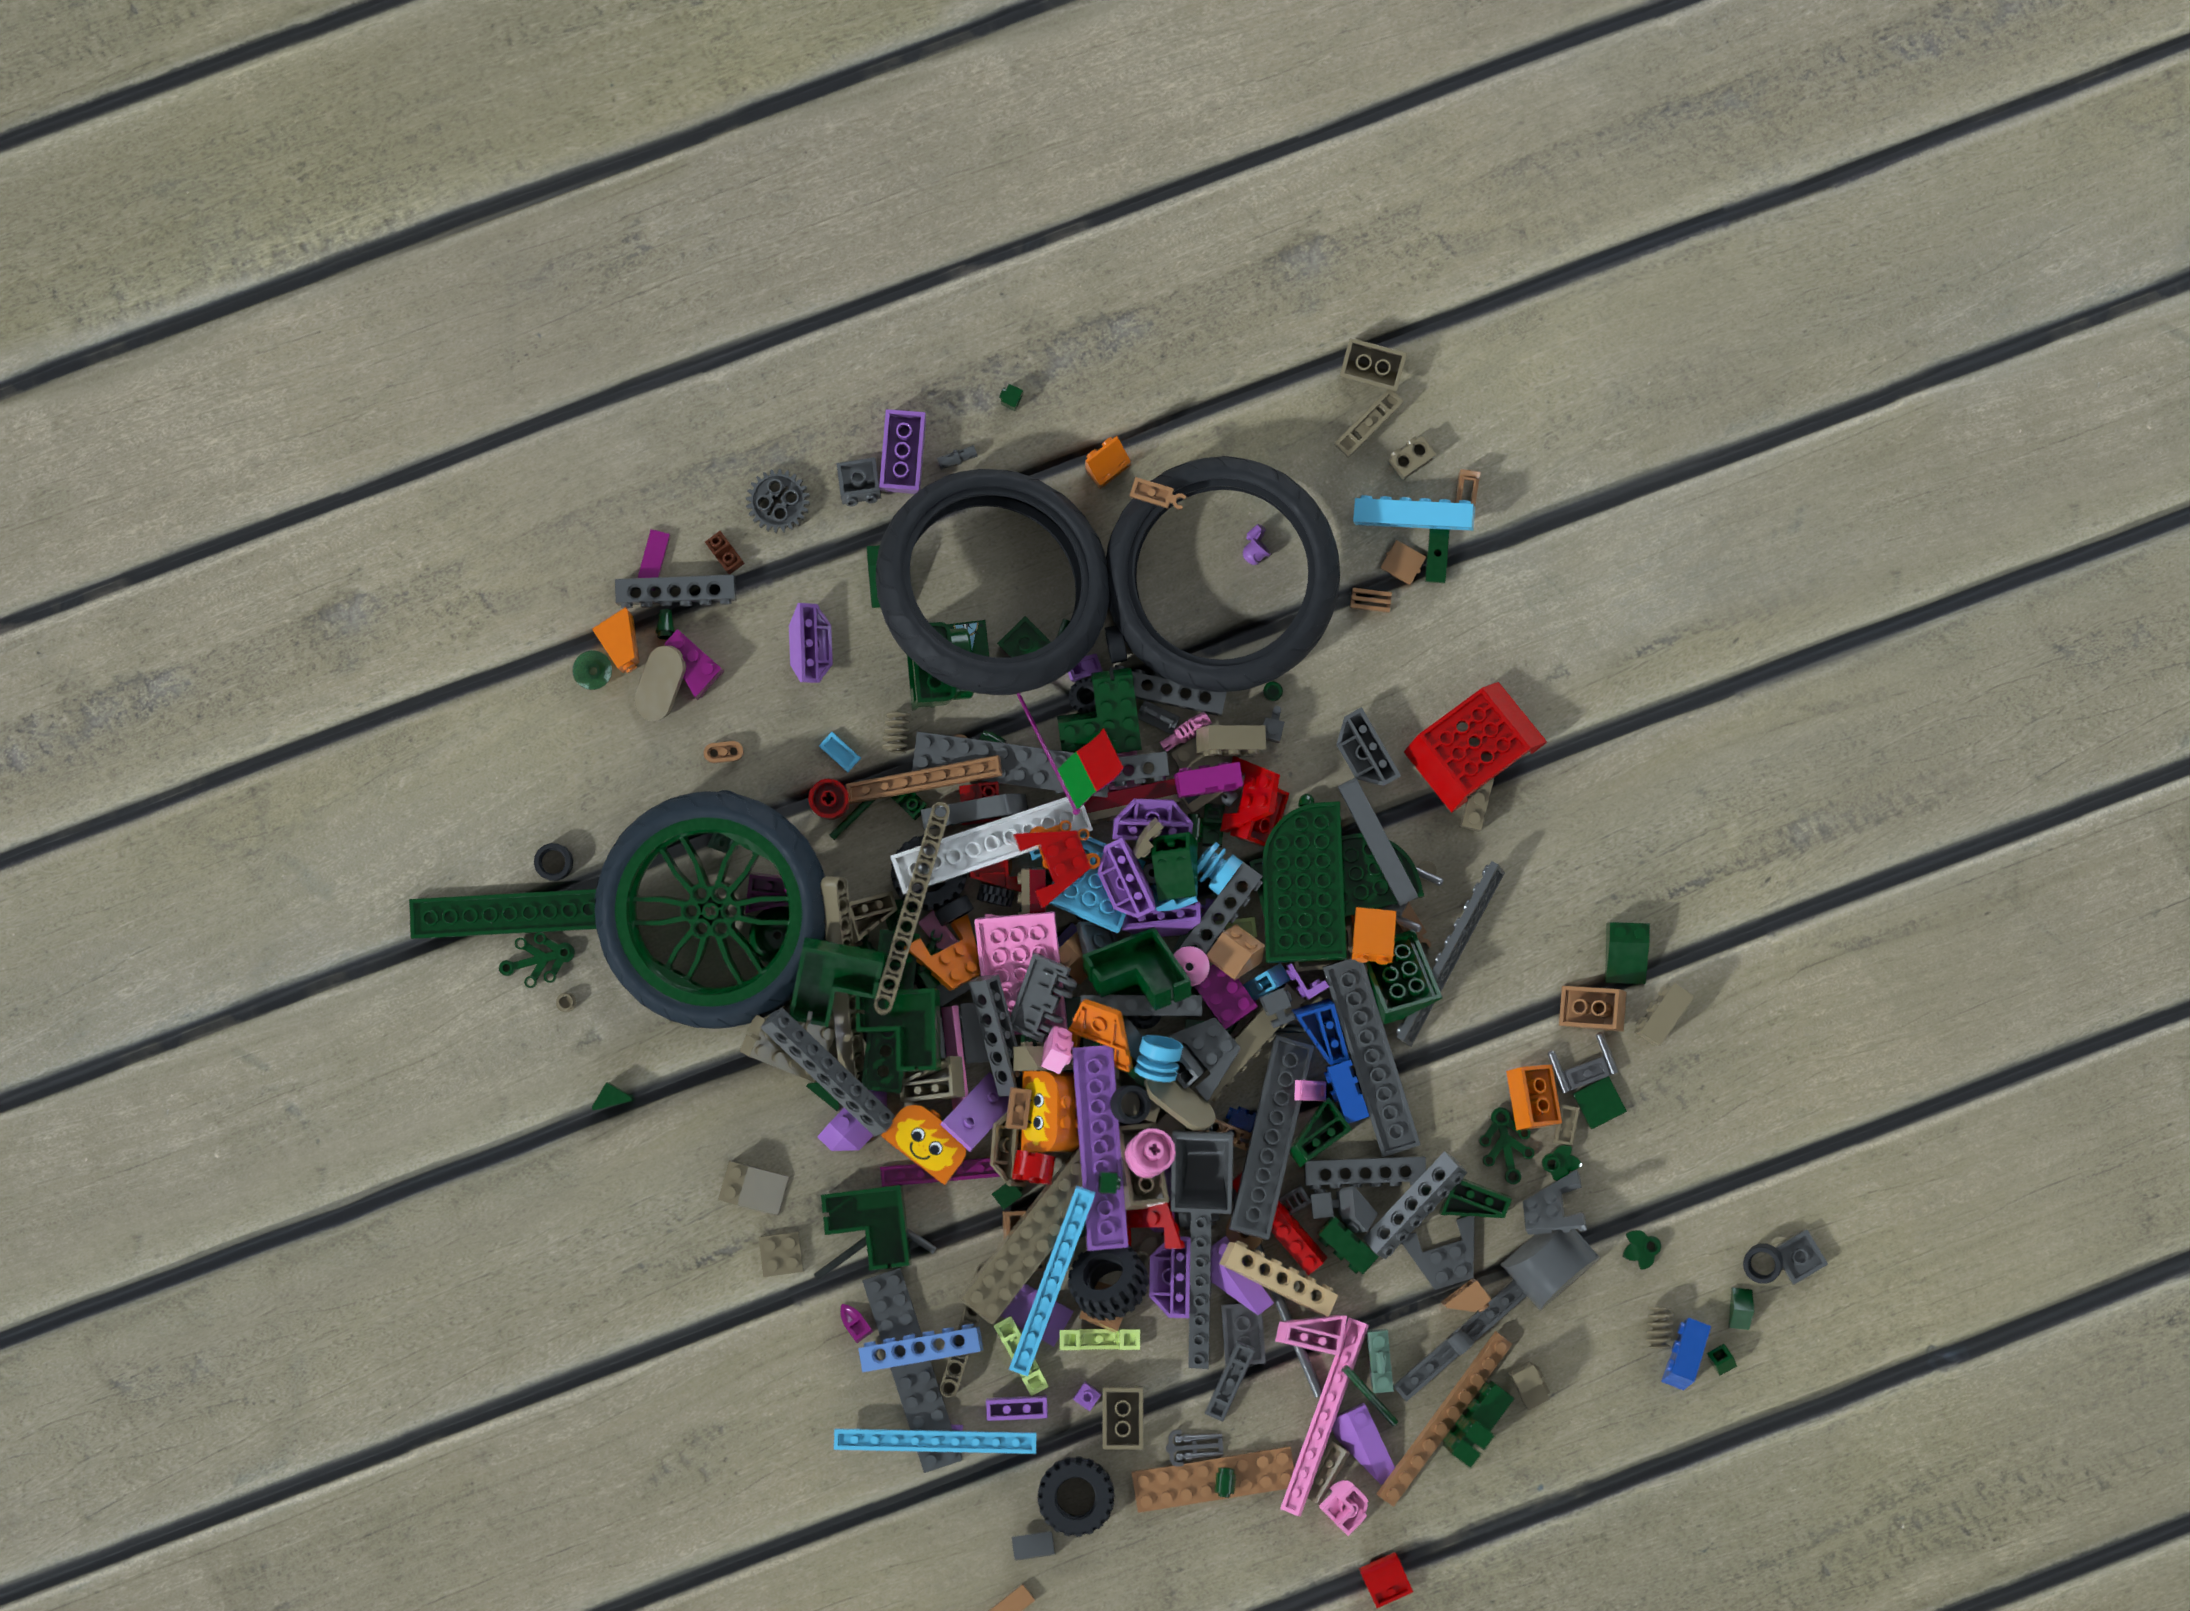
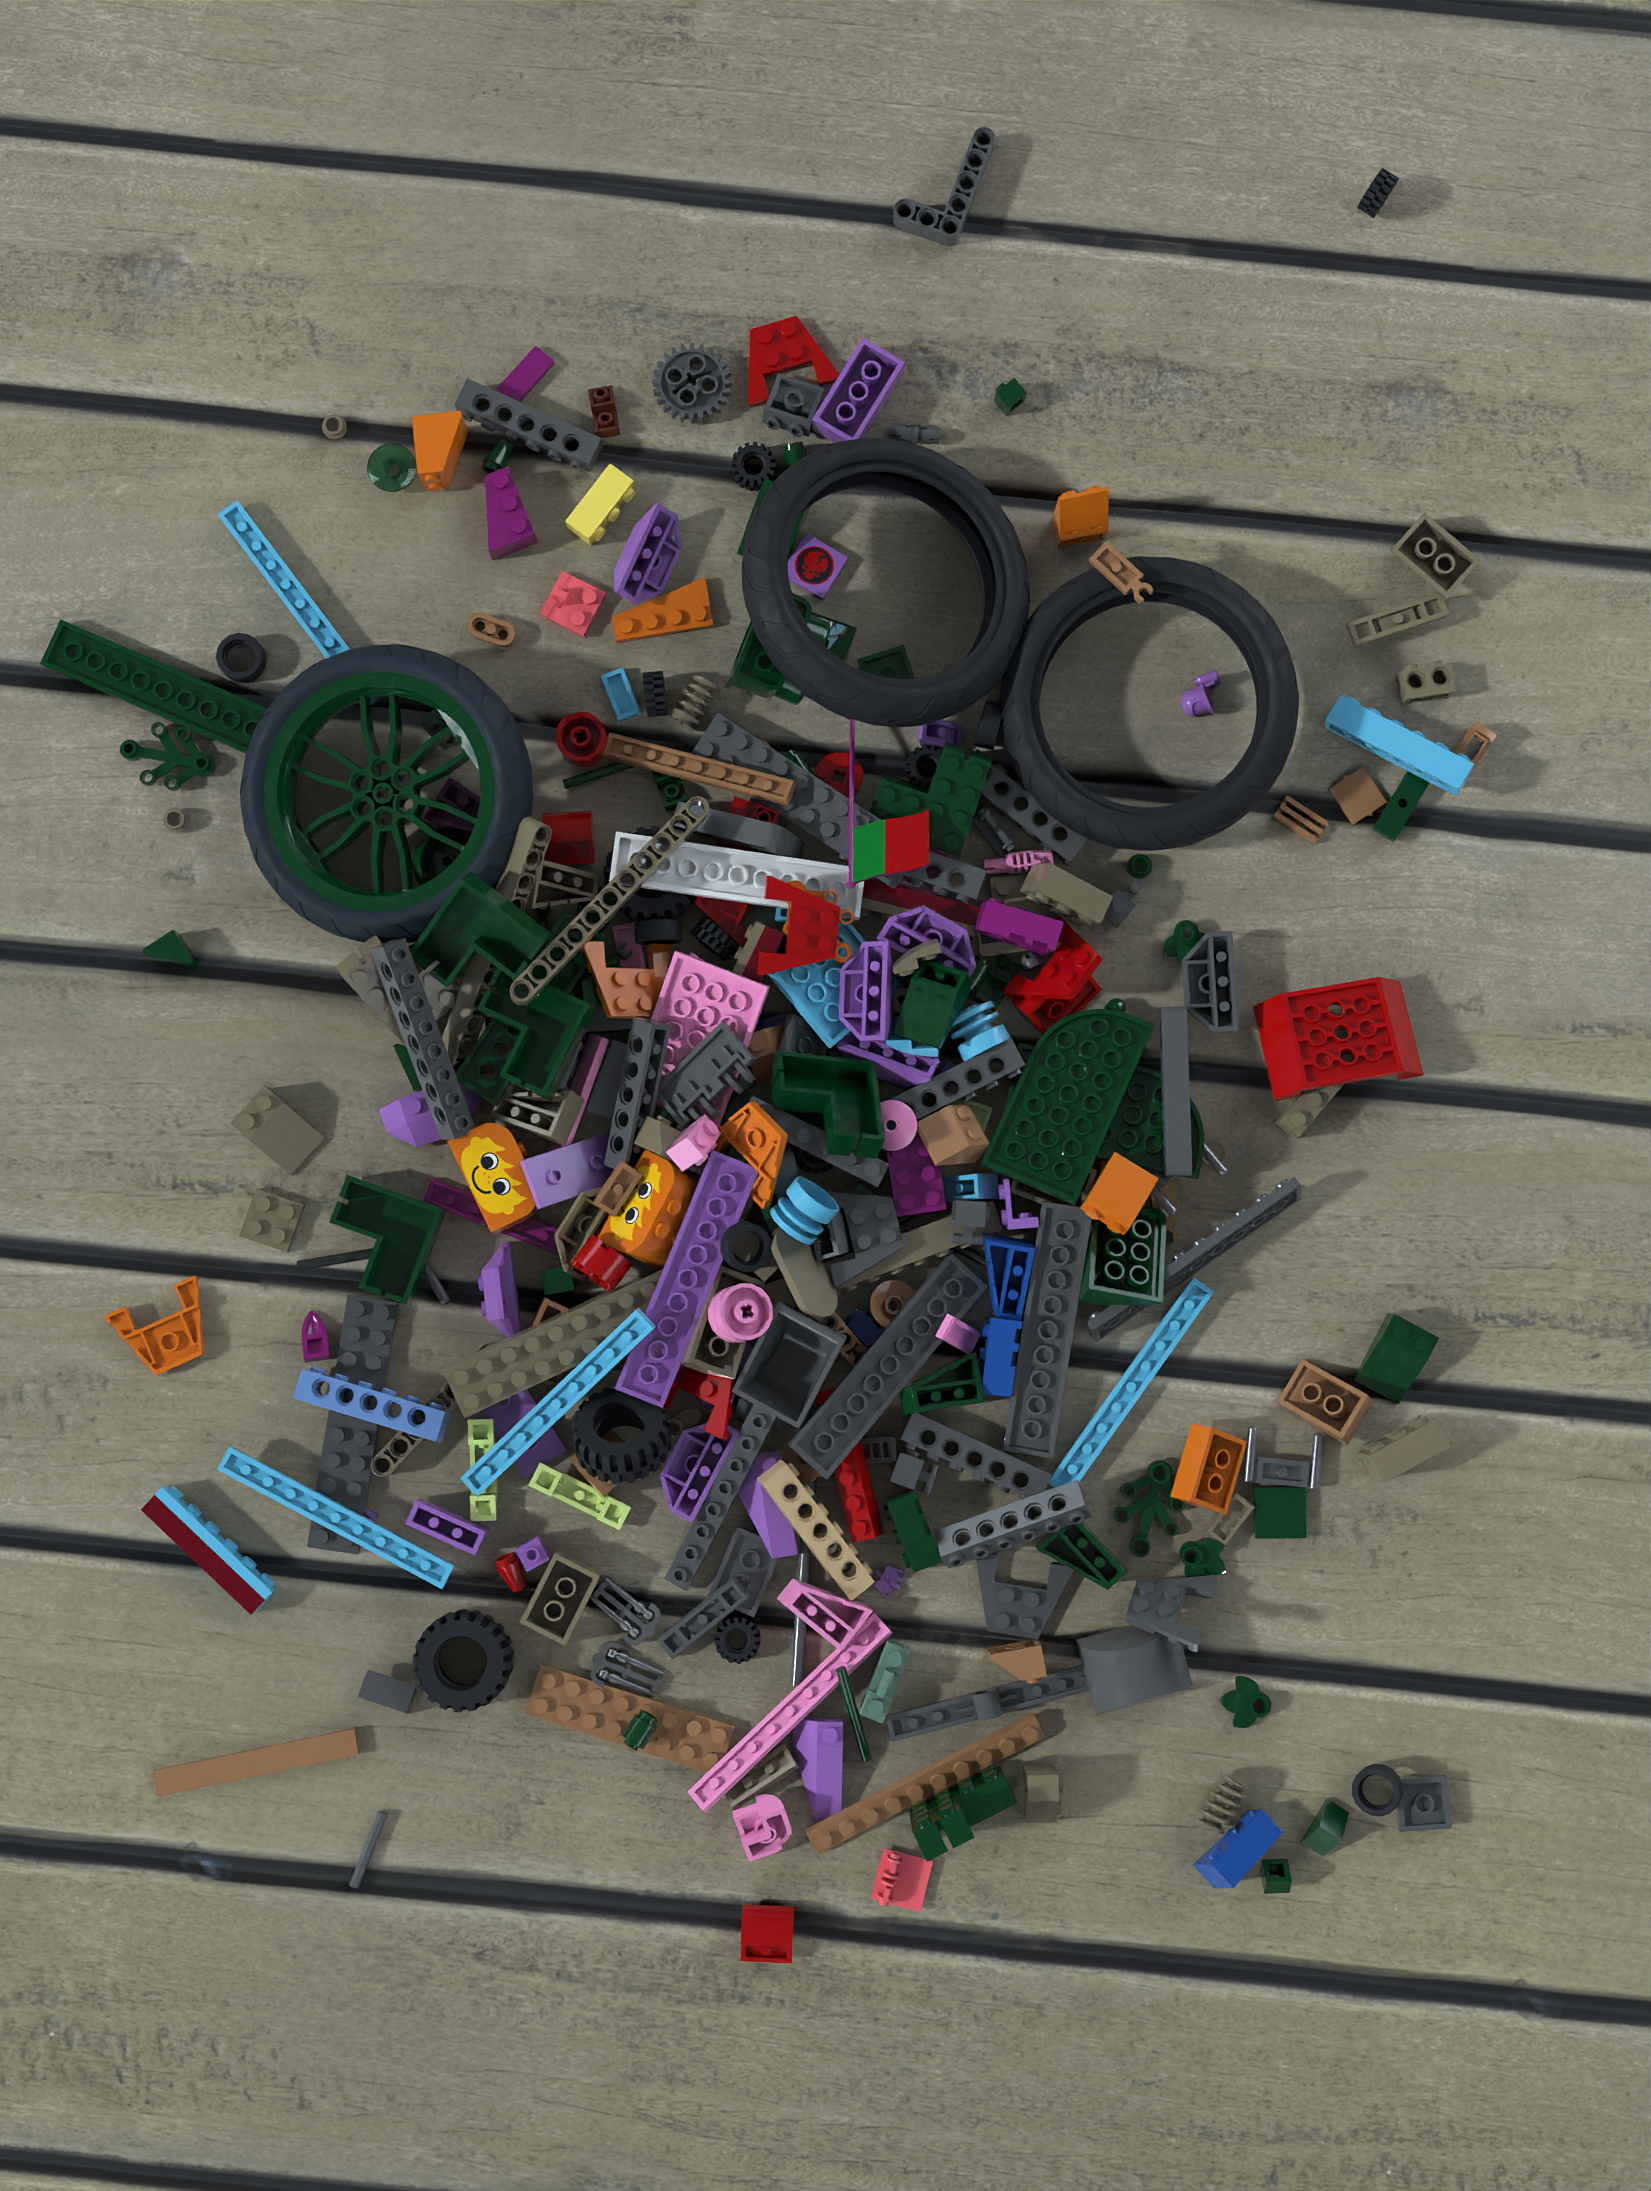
camera: 20 degrees right, 0 degrees up
(535, 660) = (334, 427): none -> dark tan plate
(557, 792) = (283, 581): none -> medium azure plate
(660, 683) = (458, 517): dark tan tile -> none
(751, 1376) = (168, 1340): none -> orange wing
(757, 622) = (601, 505): none -> light yellow brick
(772, 704) = (573, 604): none -> coral hinge
(828, 443) = (781, 348): none -> red wing
(845, 676) = (668, 614): none -> orange wing
(847, 528) = (749, 452): none -> black tyre
(855, 1509) = (209, 1549): none -> brick
(858, 872) = (571, 837): none -> red brick
(865, 740) = (654, 694): none -> black tyre
(880, 518) = (794, 452): none -> dark green cone
(901, 270) = (958, 197): none -> dark grey beam
(933, 589) = (815, 566): none -> tile
(970, 1223) = (501, 1292): none -> medium lavender wedge
(1022, 723) = (839, 763): none -> red plate
(1077, 1417) = (511, 1571): none -> red cone
(1108, 1182) = (676, 1323): dark green plate -> none
(1195, 1409) = (648, 1629): none -> flat silver piece
(1202, 119) = (1378, 192): none -> black tyre
(1249, 1083) = (885, 1293): none -> medium nougat dish
(1262, 1397) = (737, 1623): none -> black tyre
(1327, 733) = (1180, 945): none -> dark green plate
(1346, 1289) = (887, 1579): none -> medium lavender piece
(1356, 1210) = (942, 1495): dark grey slope -> none
(1450, 1063) = (1132, 1383): none -> medium azure plate
(1461, 1495) = (901, 1880): none -> coral hinge

